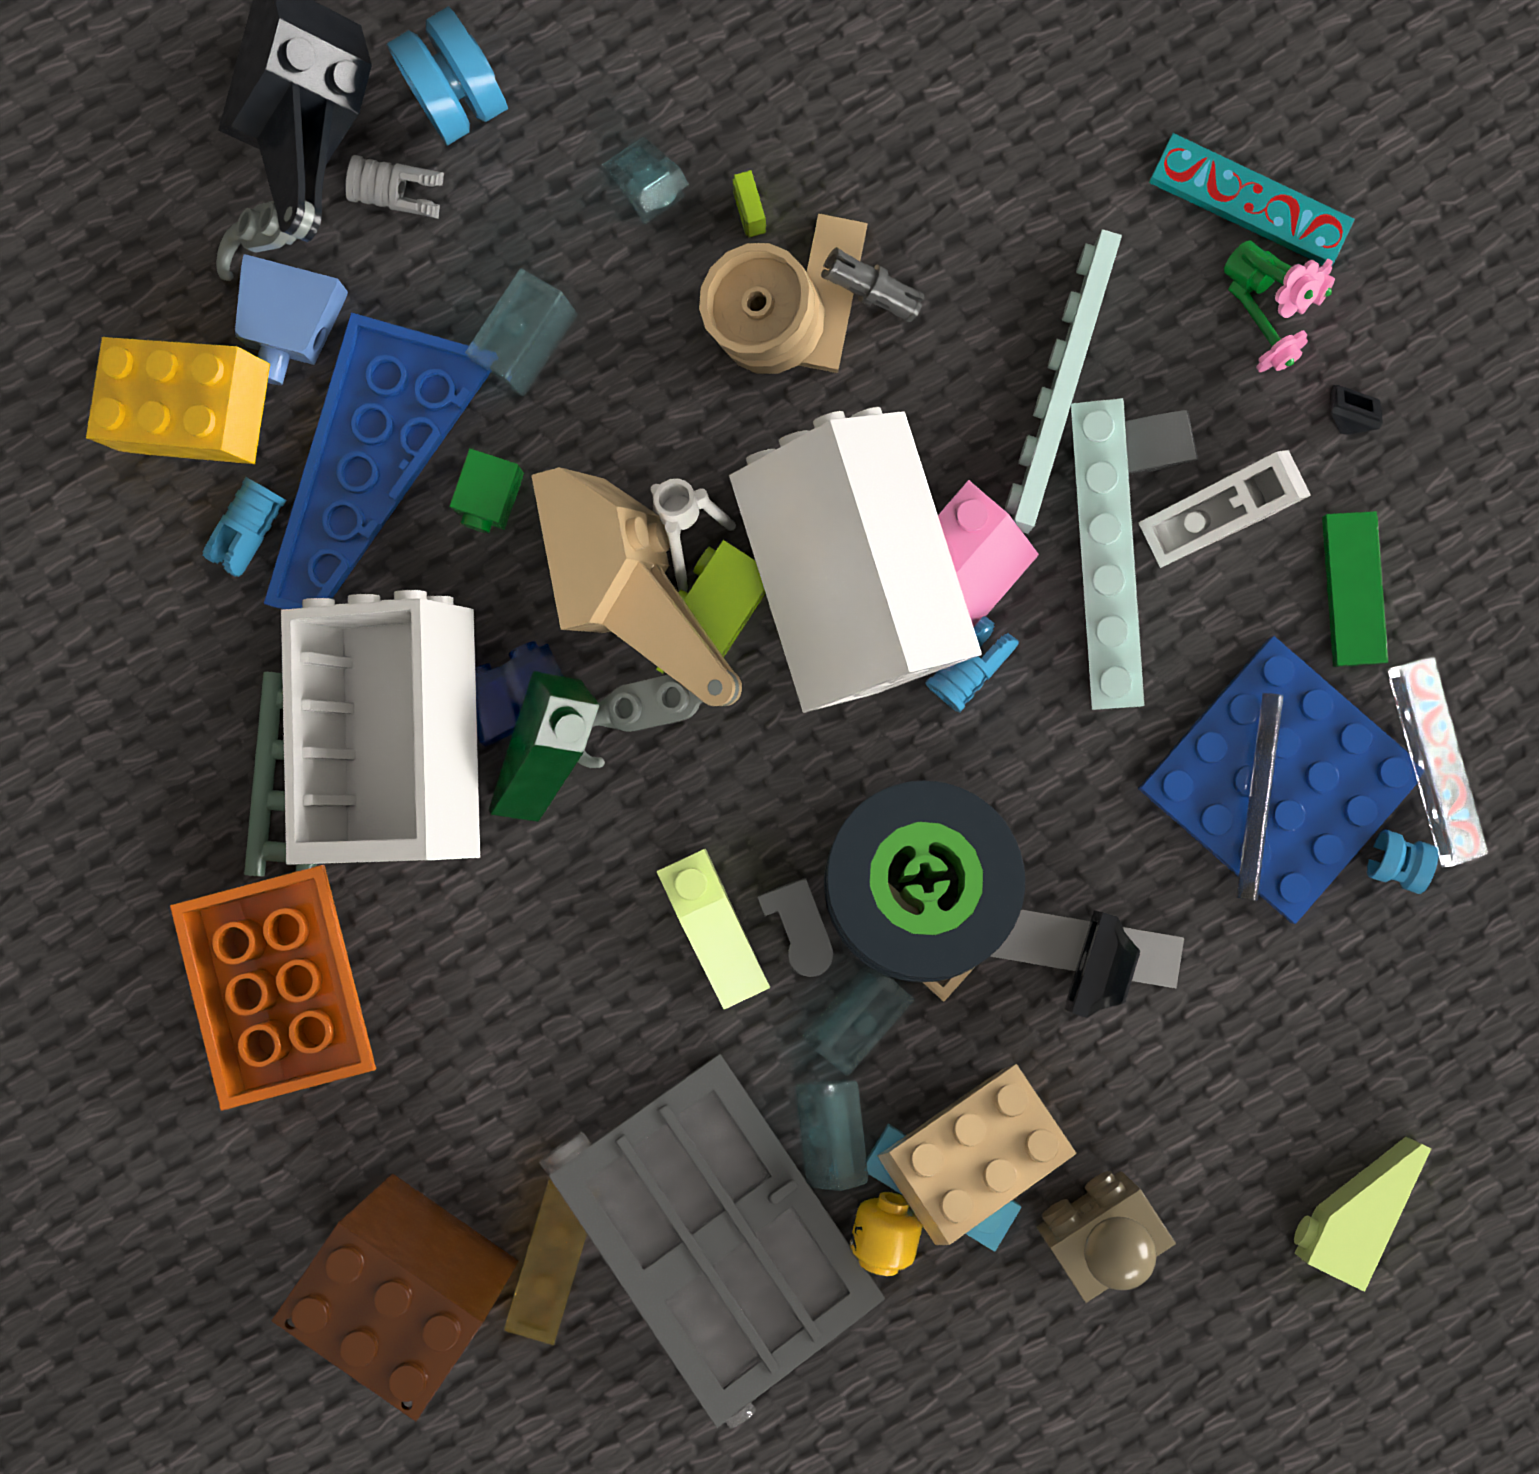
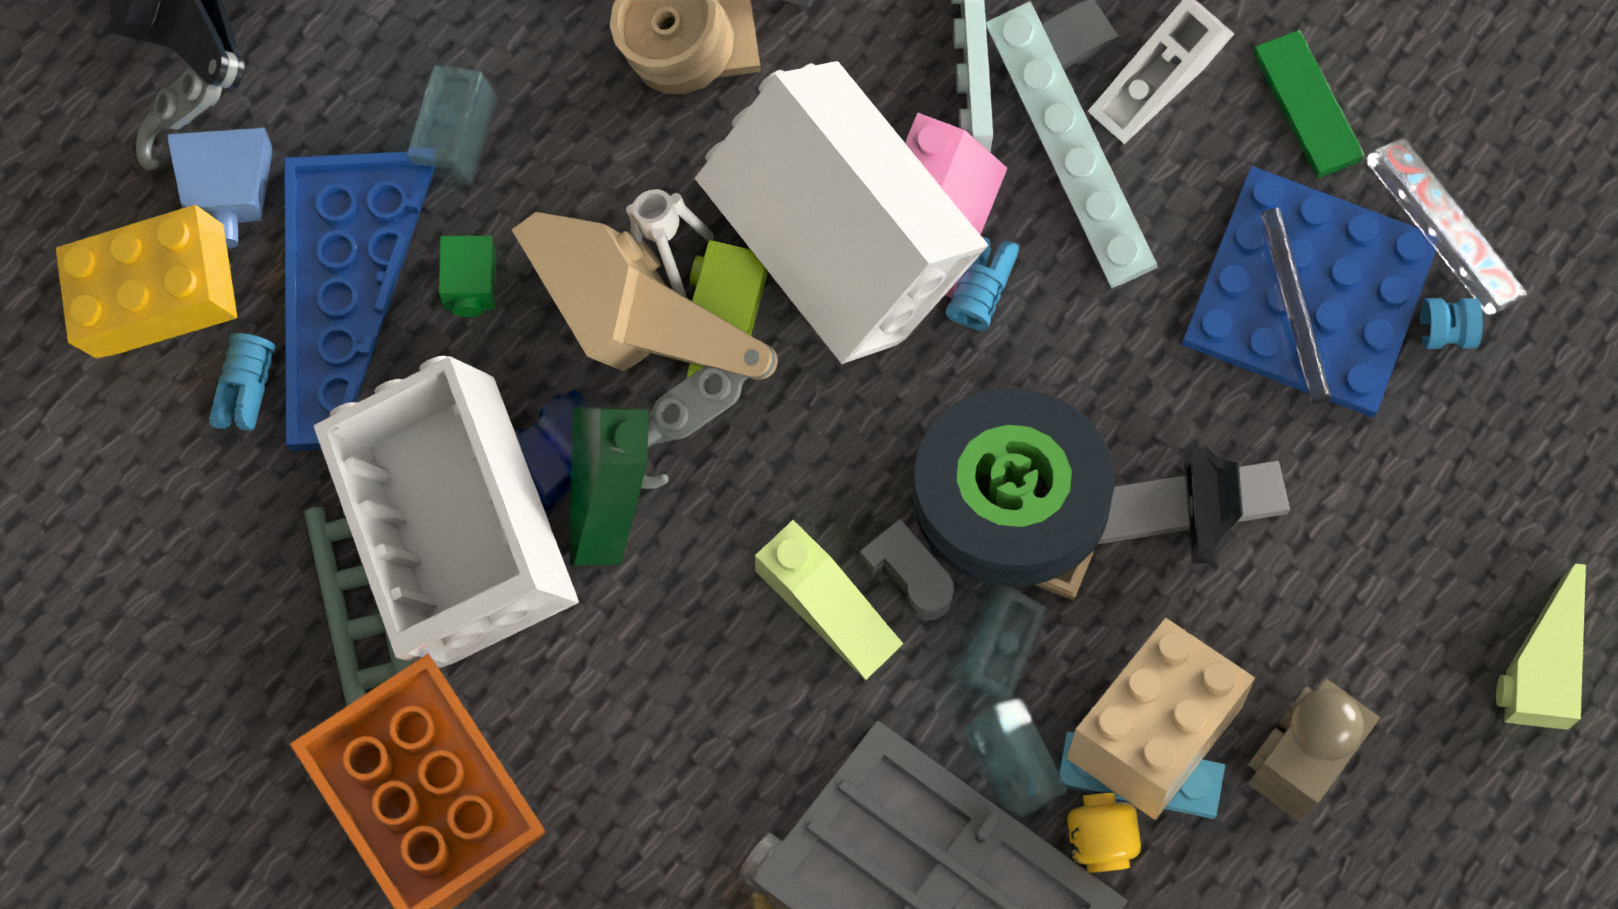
camera: 20 degrees left, 15 degrees down
(385, 185) = (277, 38): light grey hinge -> none

